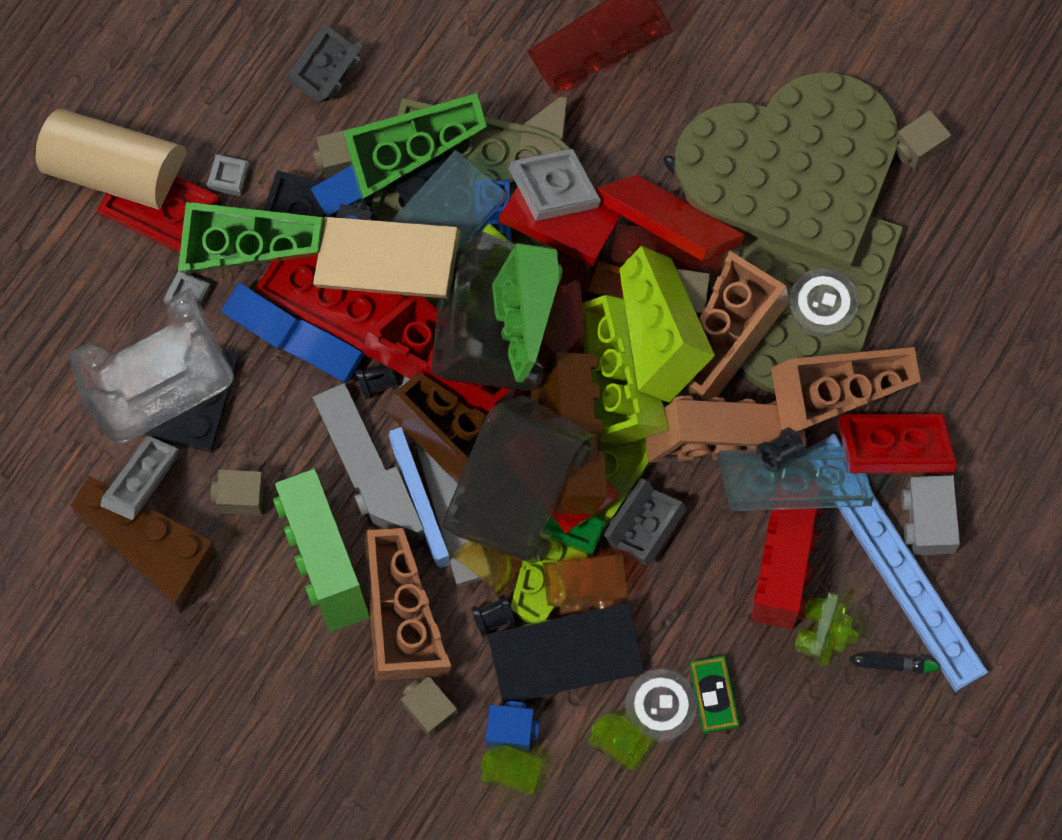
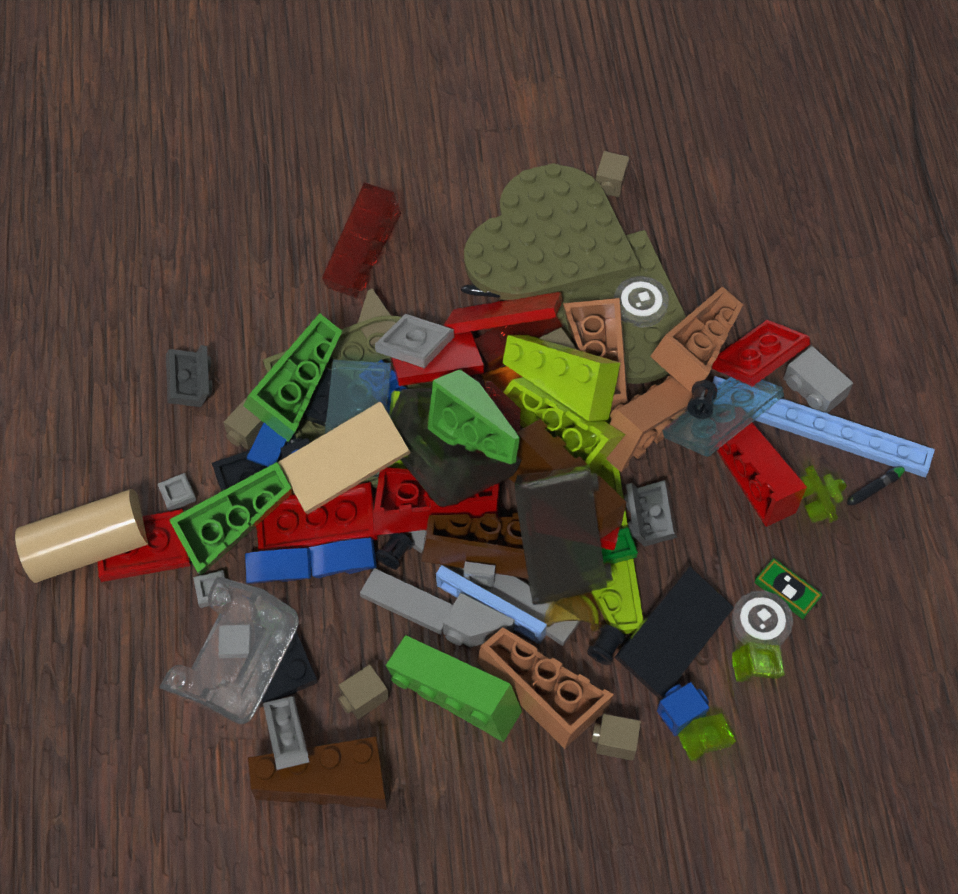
camera: 40 degrees left, 10 degrees down
(428, 462) = (480, 574): none -> light grey tile
(585, 580) = (649, 574): clear orange brick -> none

